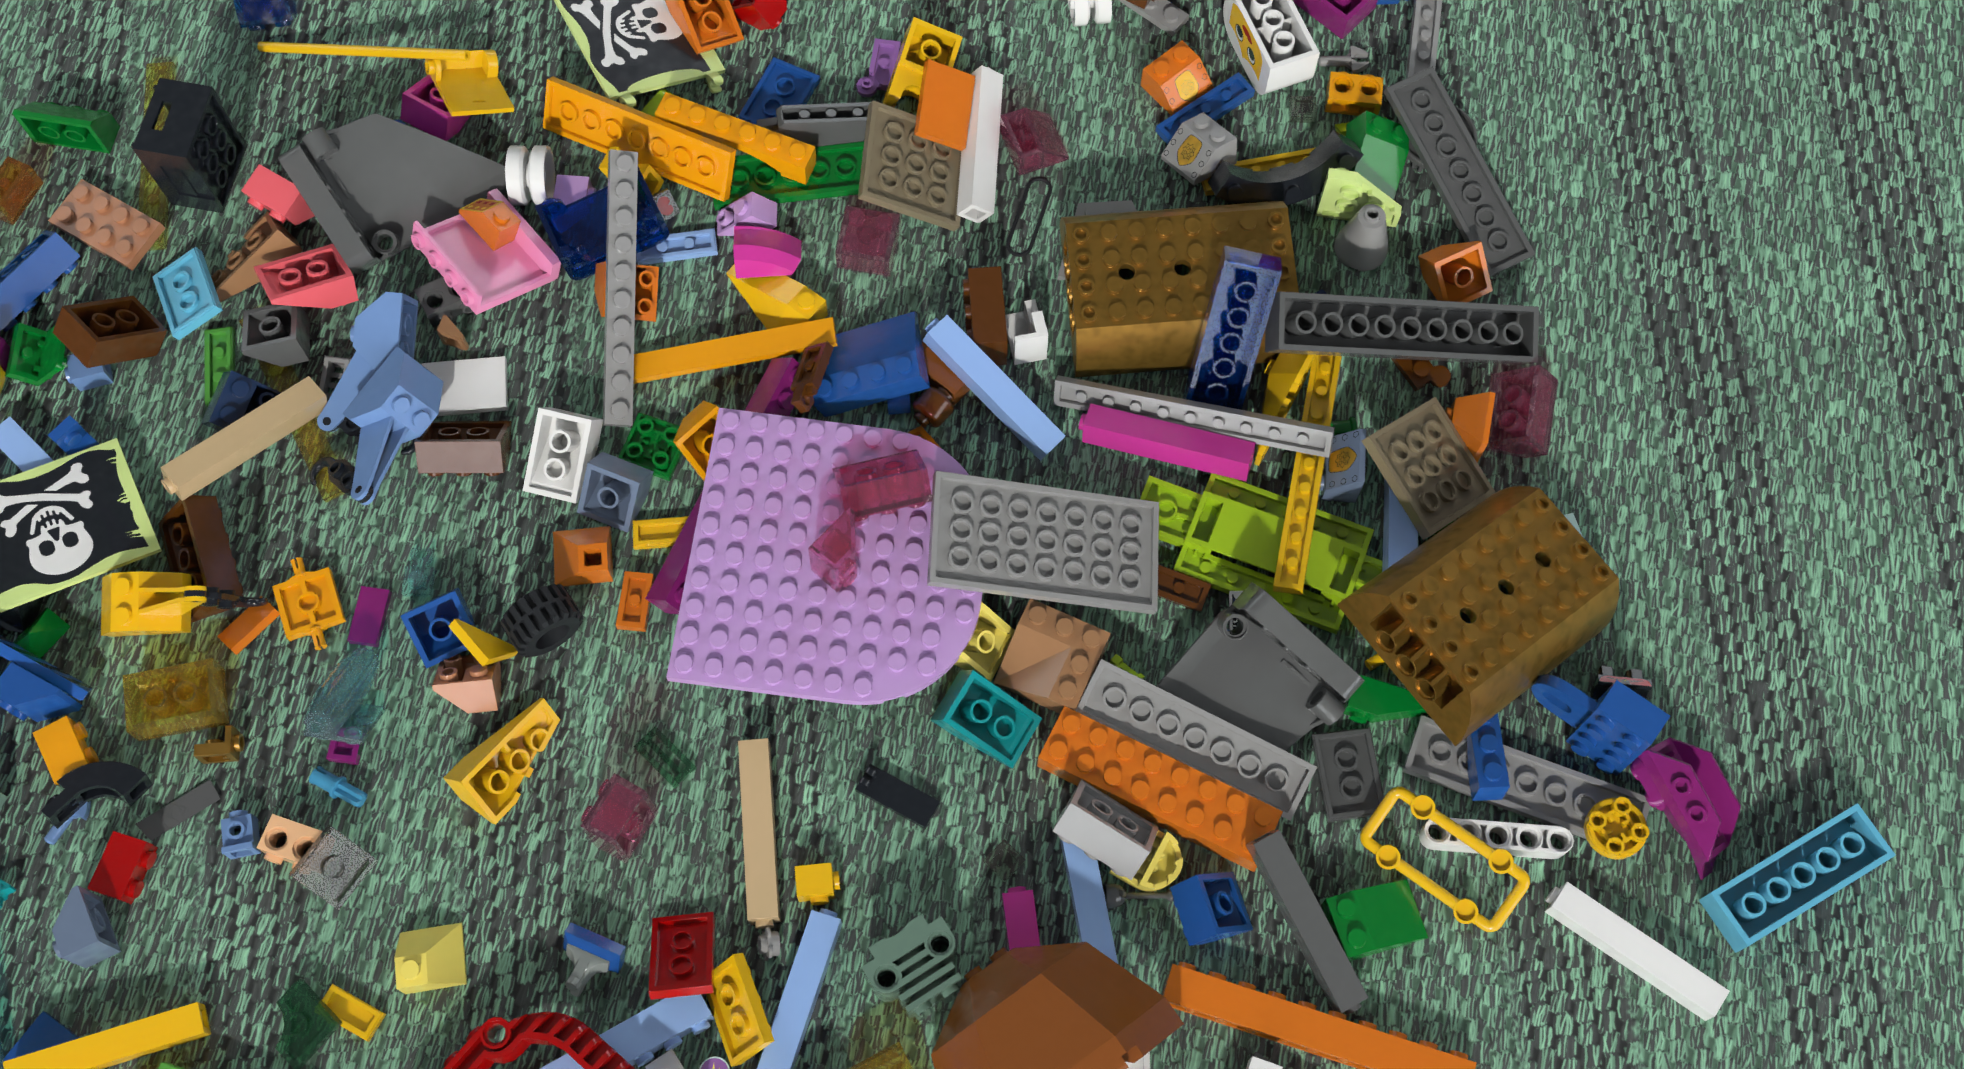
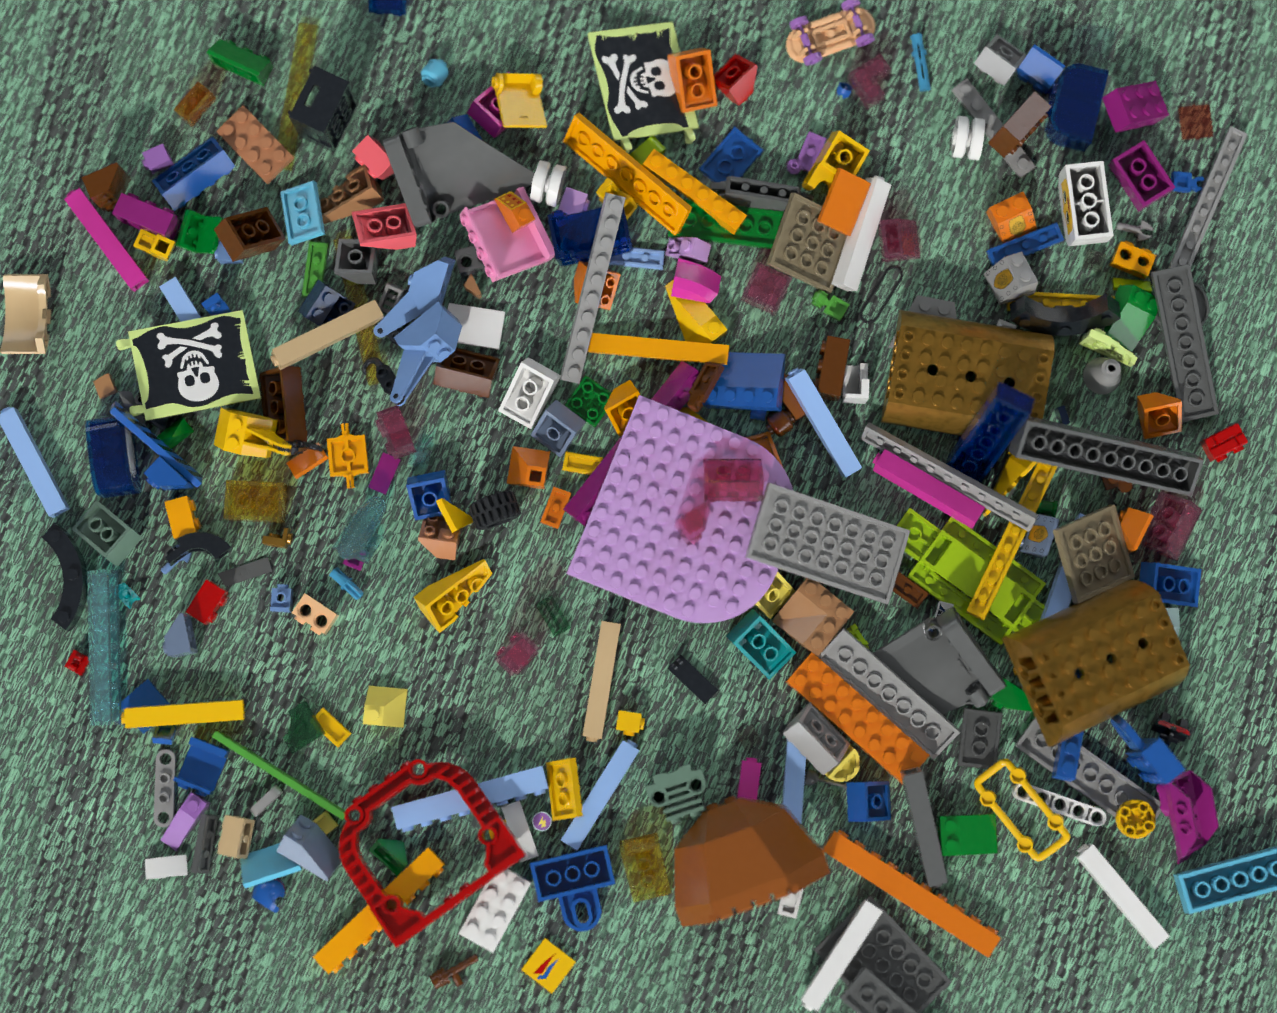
camera: 15 degrees right, 15 degrees up
(333, 867) = (336, 636): clear smoke tile -> none
(346, 81) = (434, 72): none -> medium azure head
(360, 50) = (451, 56): yellow piece -> none
(371, 548) = (395, 429): none -> clear pink brick
(590, 955) = (481, 731): piece -> none
(666, 204) = (635, 225): tile -> none
(682, 955) = (538, 747): red plate -> none
(769, 943) = (592, 752): light grey plate -> none
(968, 244) = (834, 308): none -> bright green plate
(1556, 287) = (1223, 442): none -> red brick
(1560, 479) = (1174, 583): none -> blue slope

